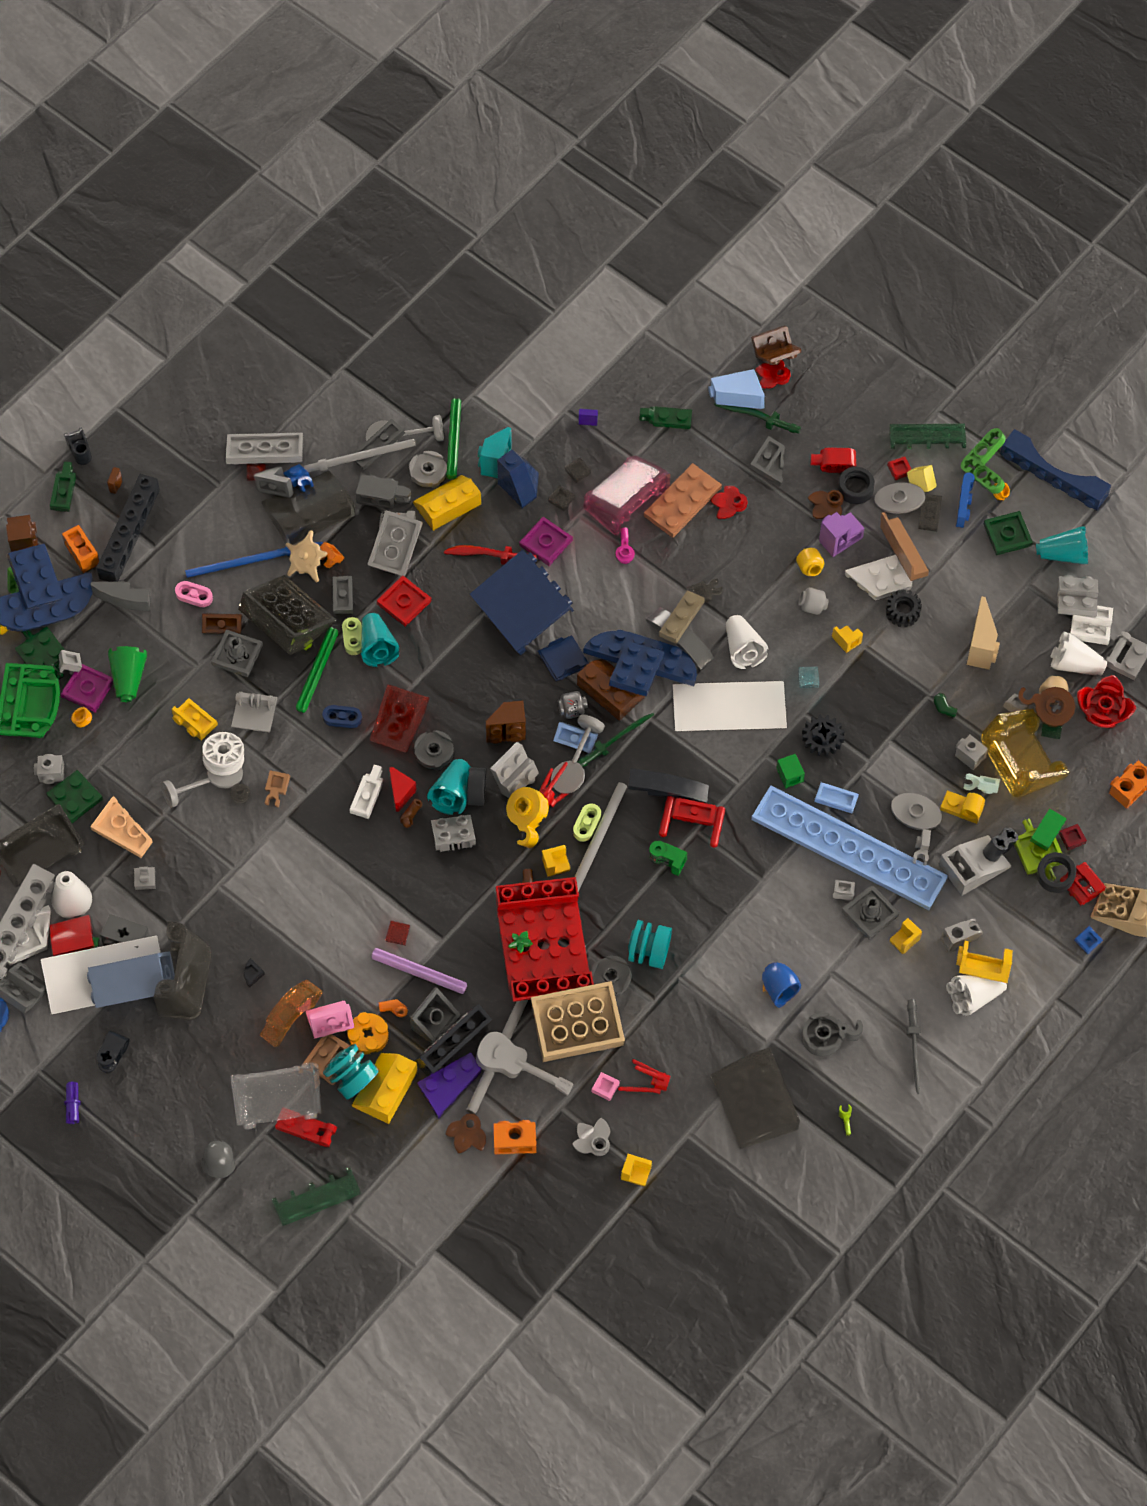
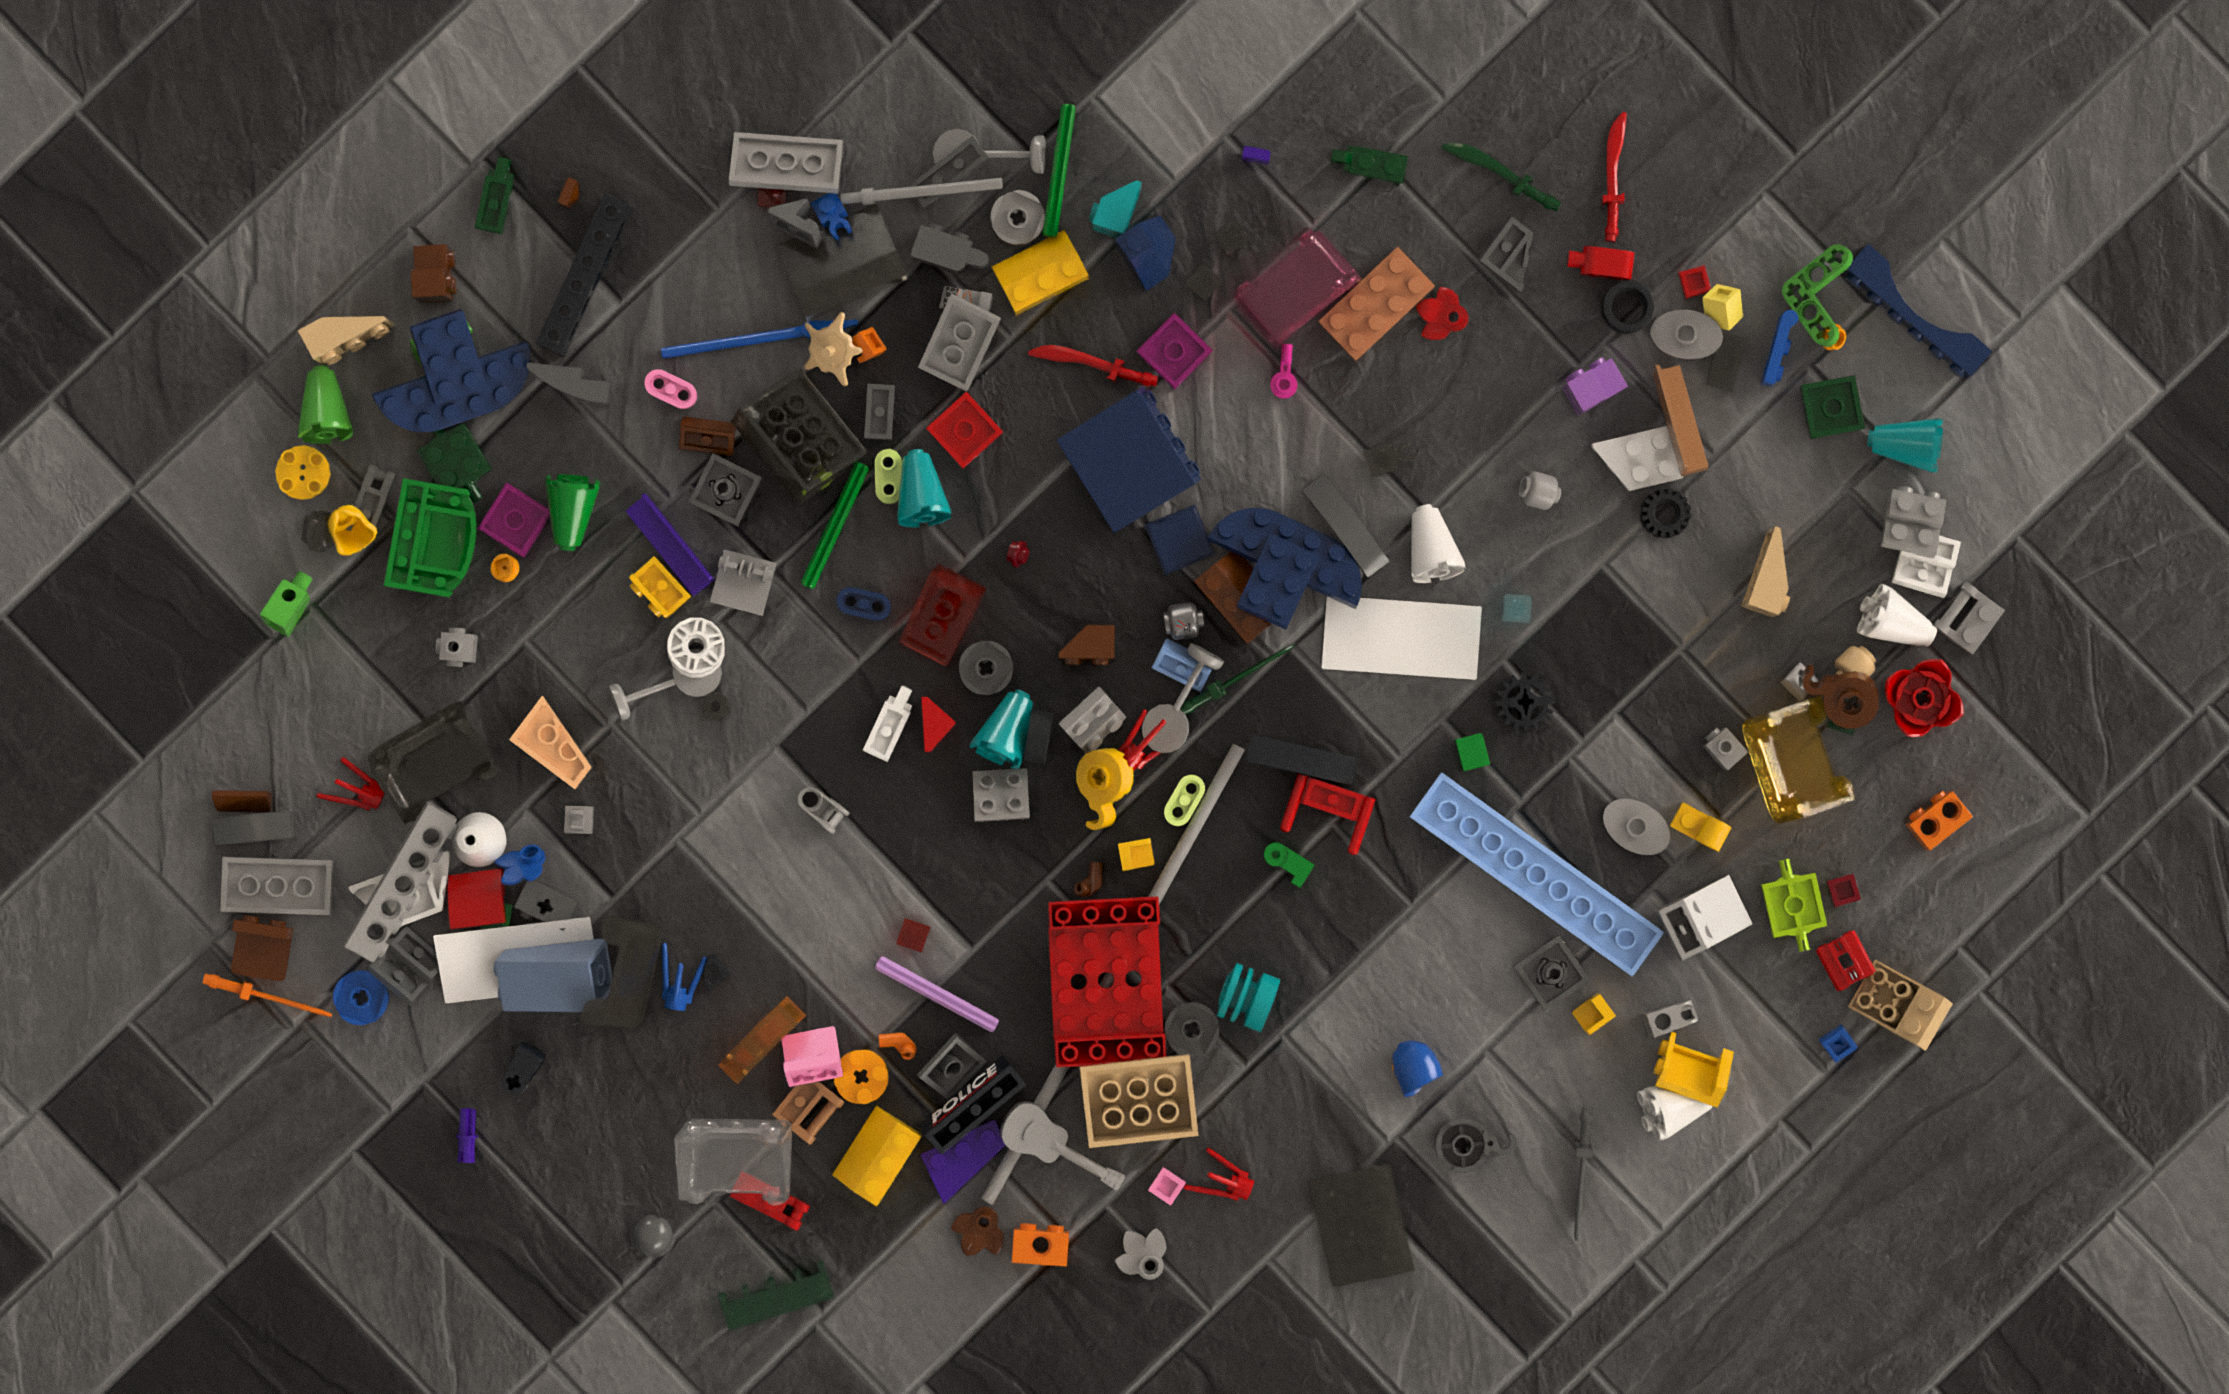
camera: 10 degrees right, 25 degrees up
(69, 661) = (492, 483): light grey tile -> none
(75, 796) = (489, 686): dark green plate -> none
(77, 444) = (519, 123): black piece -> none
(80, 548) = (515, 305): orange brick -> none
(108, 906) = (521, 864): none -> blue plate
(200, 690) = (670, 545): none -> dark purple panel
(225, 990) = (677, 997): none -> blue plant
(276, 784) = (766, 700): medium nougat plate -> none
(325, 854) = (823, 809): none -> light grey piece
(352, 1073) = (833, 1141): teal wheel -> none
(408, 815) = (945, 759): reddish brown arm -> none
(449, 674) = (1018, 553): none -> dark red plate
(520, 941) = (1074, 981): green plant -> none
(636, 1170) = (1193, 1306): yellow panel -> none
(681, 617) = (1351, 502): dark tan plate -> none
(738, 390) = (1478, 133): light blue slope -> none
(773, 374) = (1528, 105): red plate -> none
(774, 346) = (1542, 67): reddish brown bracket -> none
(810, 562) = (1544, 427): yellow head -> none
(824, 505) = (1577, 334): reddish brown plate -> none
(834, 423) = (1614, 148): none -> red sword
(836, 797) = (1530, 795): light blue tile -> none
(843, 890) = (1520, 936): light grey tile -> none
(845, 1116) = (1477, 1263): lime hand -> none
(847, 638) = (1579, 550): yellow panel -> none
(922, 844) = (1637, 884): light grey plate -> none
(927, 434) = (1742, 232): clear green hinge -> none
(942, 705) = (1696, 670): dark green arm -> none
(985, 784) = (1737, 798): light aqua plate -> none
(1000, 844) = (1742, 897): black axle -> none
(1048, 829) = (1811, 881): green tile -> none
(1060, 858) = (1827, 962): black tyre -> none

